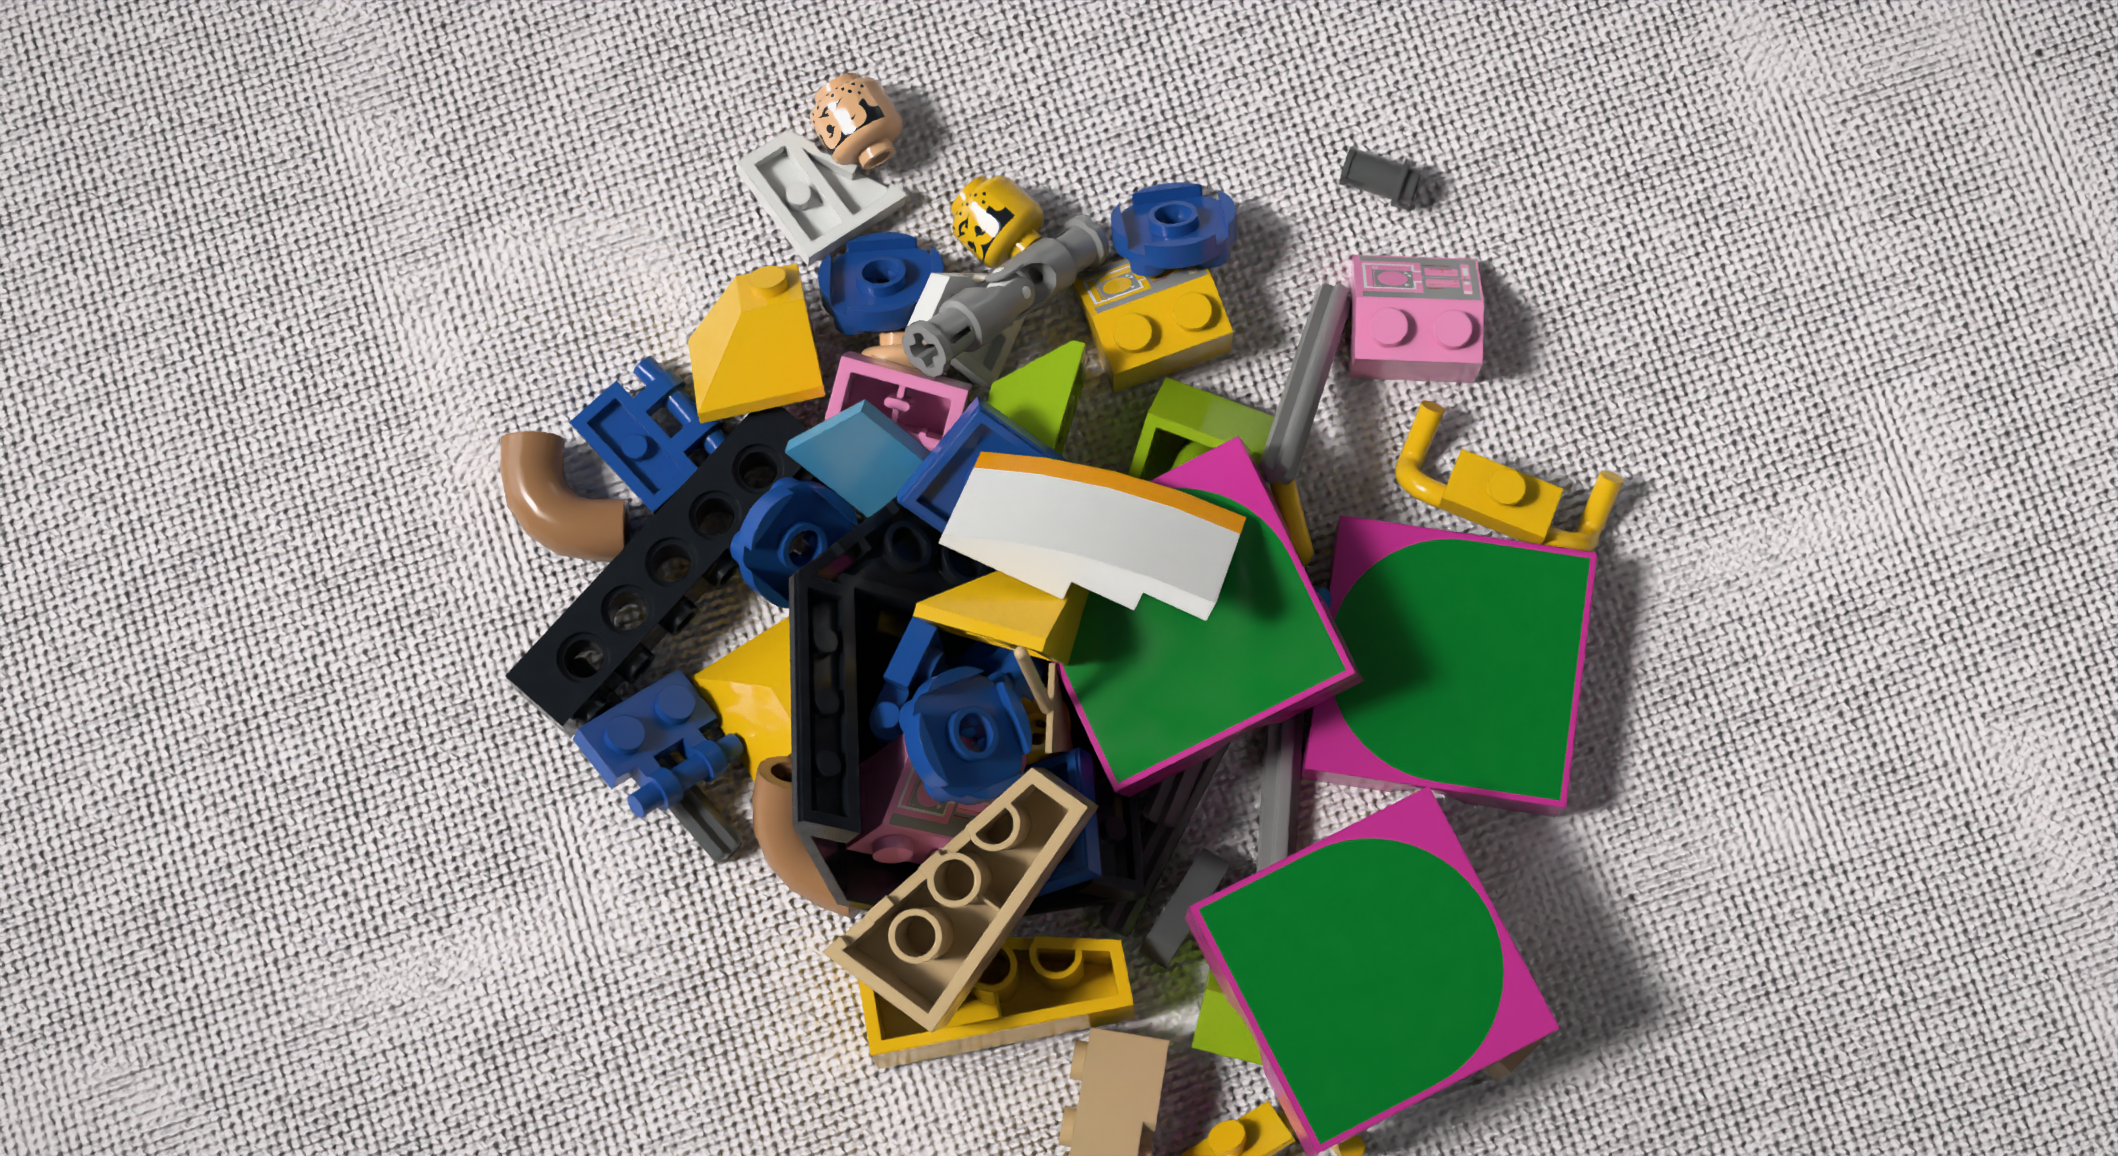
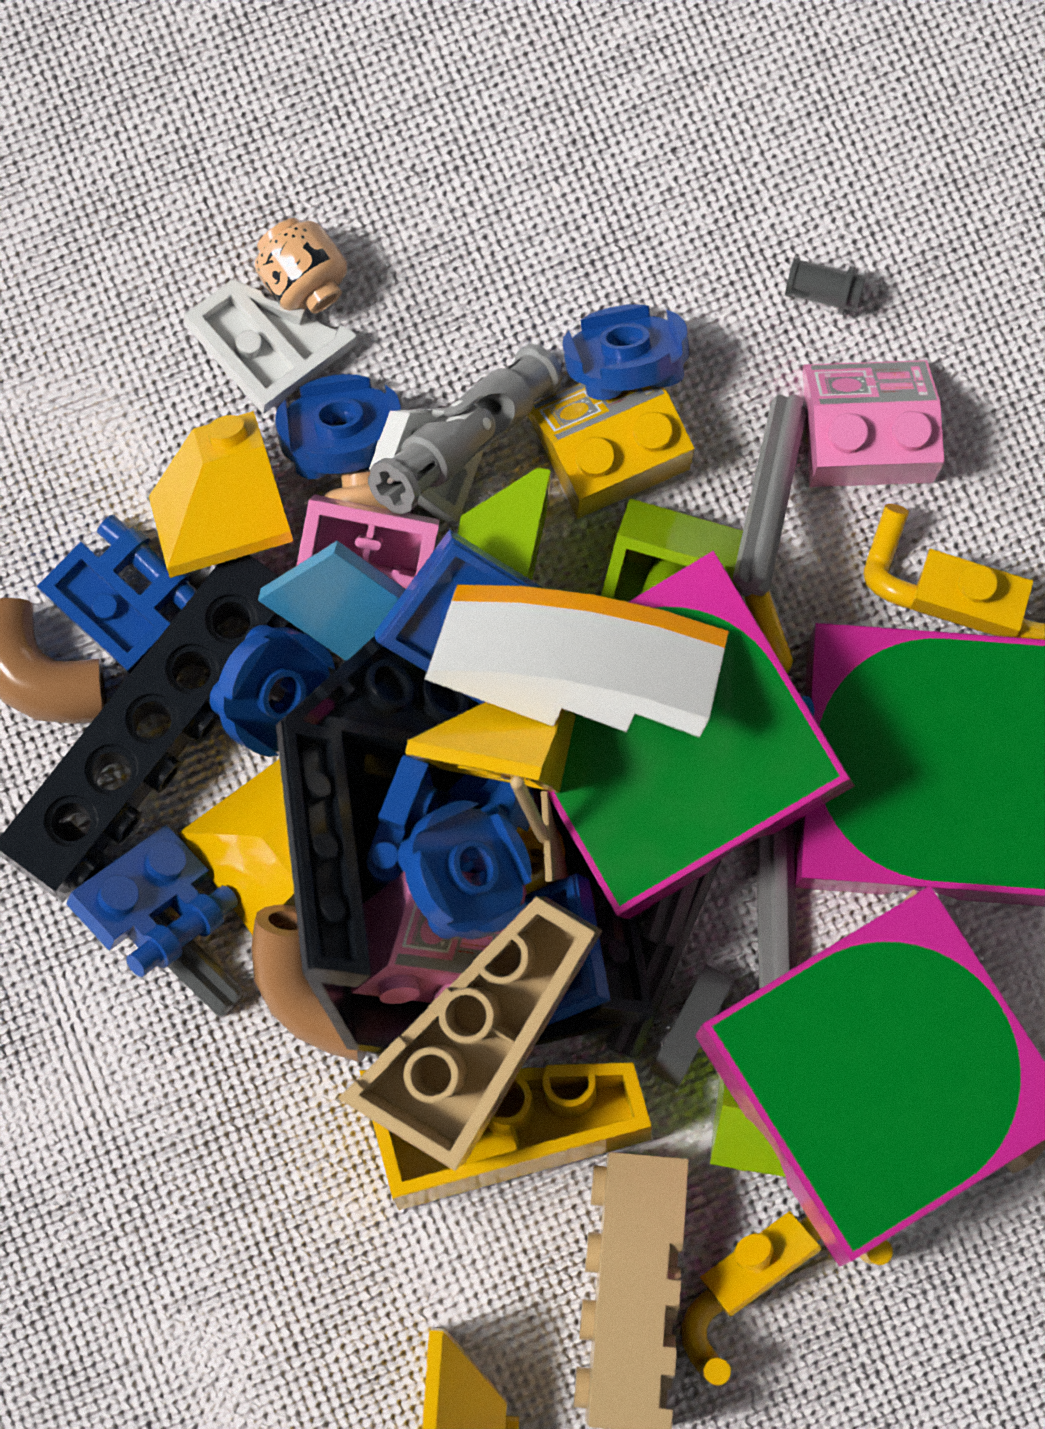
camera: 10 degrees left, 0 degrees up
(995, 219) = (448, 354): yellow head -> none

